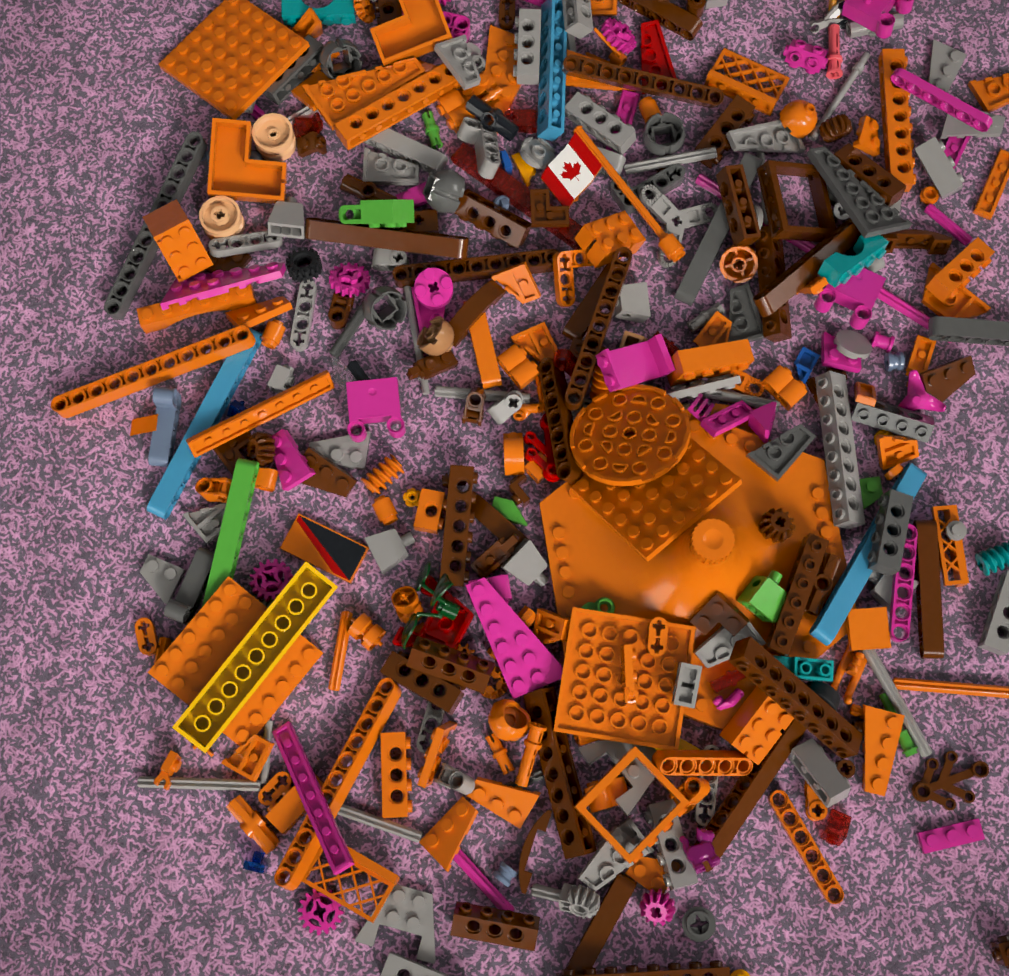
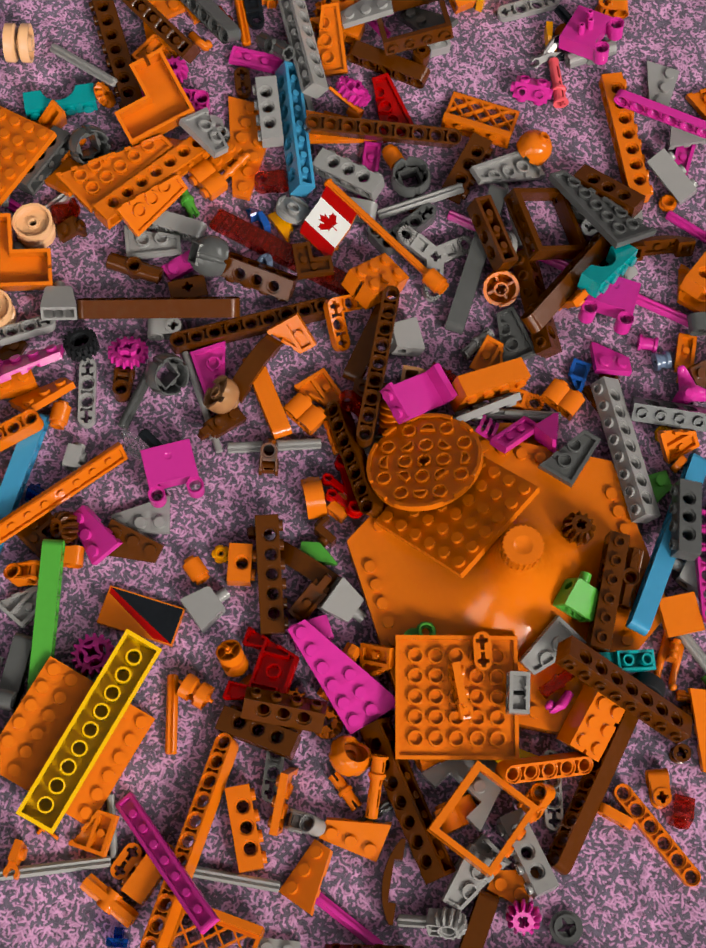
camera: 15 degrees left, 5 degrees down
(380, 213) = (149, 284): bright green brick -> none
(382, 474) = (188, 535): orange piece -> none
(390, 131) = (148, 205): none -> orange wing
(432, 277) = (218, 358): dark pink brick -> none
(444, 606) = (269, 654): dark green plant -> none
(484, 112) = (234, 177): black piece -> none
(485, 144) = (241, 206): light grey beam -> none
(503, 408) = (296, 455): light grey piece -> none
(504, 874) = (368, 909): sand blue wheel -> none
(526, 410) = (318, 454): orange arm -> none
(701, 852) = (558, 854): magenta animal -> none
(720, 611) = (537, 617): reddish brown plate -> none
(767, 821) = (615, 816): none -> orange beam
(820, 772) = (658, 760): light grey brick -> none
(835, 128) = (570, 152): reddish brown gear -> none
(852, 344) = (620, 349): light grey tile -> none
(857, 69) = (580, 97): light grey bar -> none
(865, 393) = (639, 394): orange tile -> none
(868, 136) = (602, 156): orange wing -> none

